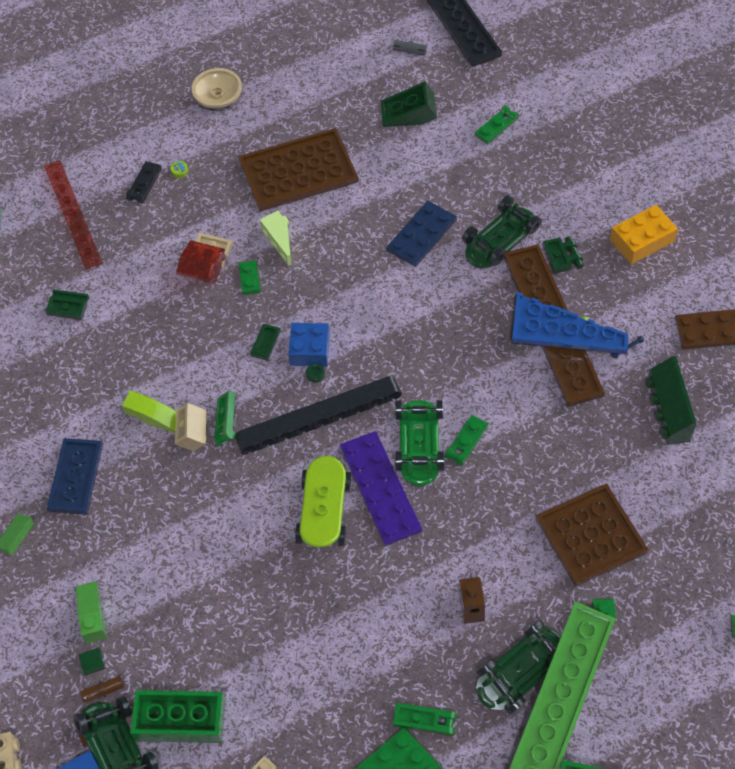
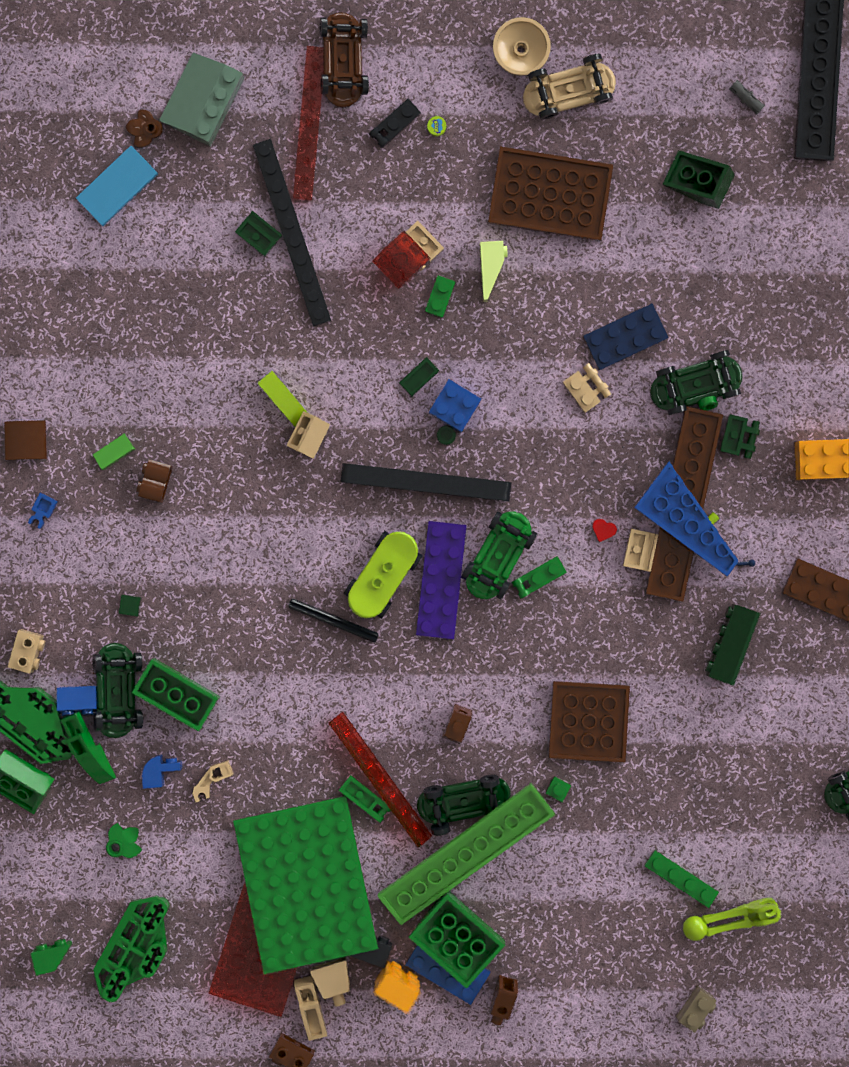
camera: 25 degrees right, 30 degrees up
(64, 536) = (154, 481): none -> reddish brown brick
(75, 476) = (188, 424): dark blue plate -> none
(77, 159) = (343, 59): none -> reddish brown piece
(90, 613) = (147, 561): bright green slope -> none
(98, 293) = (292, 232): none -> black plate
(102, 689) = (127, 634): reddish brown axle -> none
(224, 418) = (342, 440): green plate -> none
(269, 101) = (569, 88): none -> tan piece
(299, 572) = (333, 620): none -> black axle
(413, 287) = (582, 391): none -> tan plate
(429, 692) = (380, 779): none -> clear red tile
(496, 125) = (772, 248): green plate -> none
(498, 376) = (603, 530): none -> red tile
(520, 241) = (708, 403): none -> green tile
(540, 374) = (640, 550): none -> tan plate

